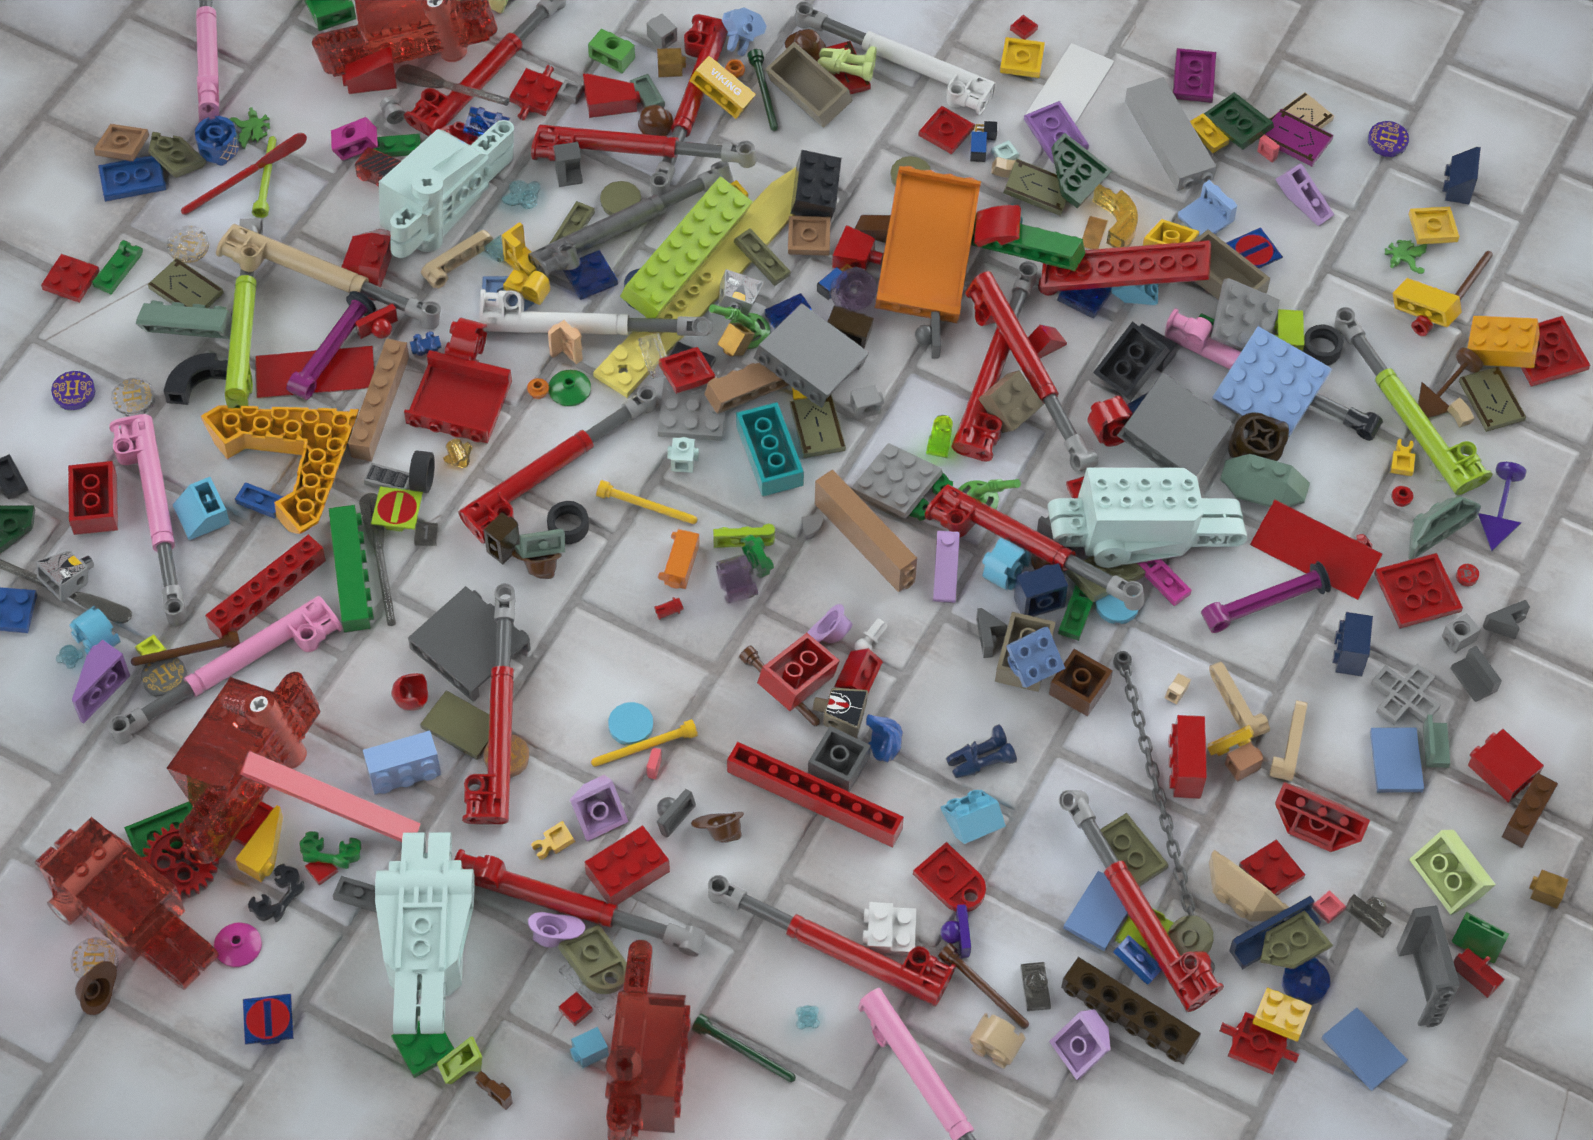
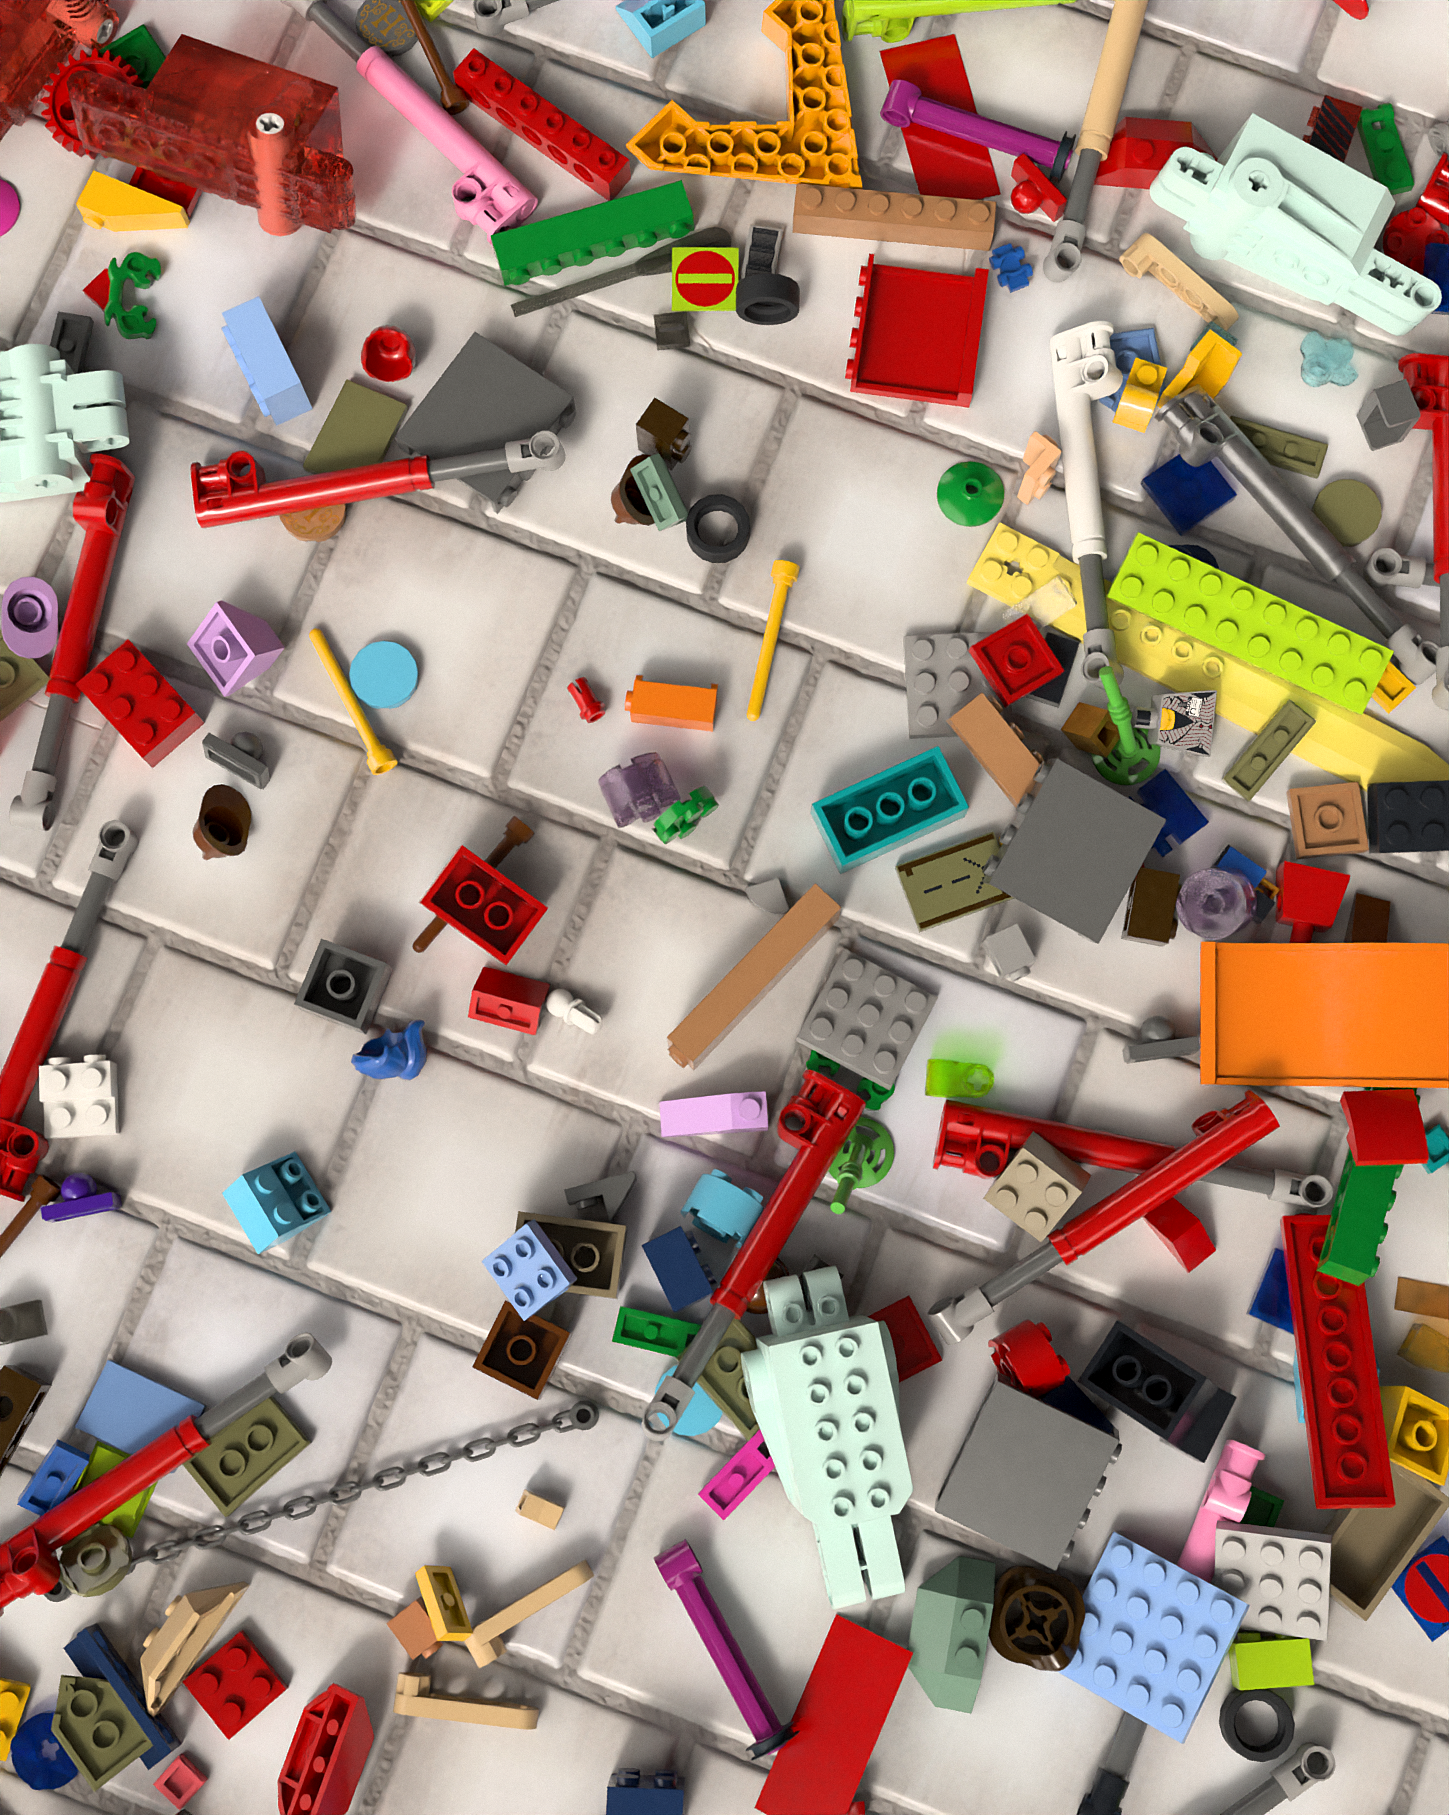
camera: 85 degrees right, 20 degrees up
(257, 499) = (695, 84): blue plate -> none
(289, 877) = (90, 251): black helmet -> none
(327, 797) = (176, 266): coral tile -> none
(354, 138) = (1377, 85): dark pink brick -> none
(458, 453) = (818, 349): clear yellow piece -> none
(466, 339) = (1015, 320): red brick -> none
(488, 506) = (718, 406): red piece -> none
(538, 393) = (957, 454): orange plate -> none
(556, 838) = (178, 597): yellow plate -> none
(654, 763) = (315, 717): coral tile -> none
(683, 454) = (861, 678): light aqua brick -> none
(732, 537) = (728, 795): lime plate -> none
(815, 794) = (280, 958): red brick -> none
(832, 626) = (577, 942): lavender piece -> none
(843, 709) = (436, 984): torso -> none
(950, 878) = (174, 1180): red tile -> none
(970, 753) = (384, 1187): dark blue piece -> none
(1187, 756) = (402, 1534): red brick -> none

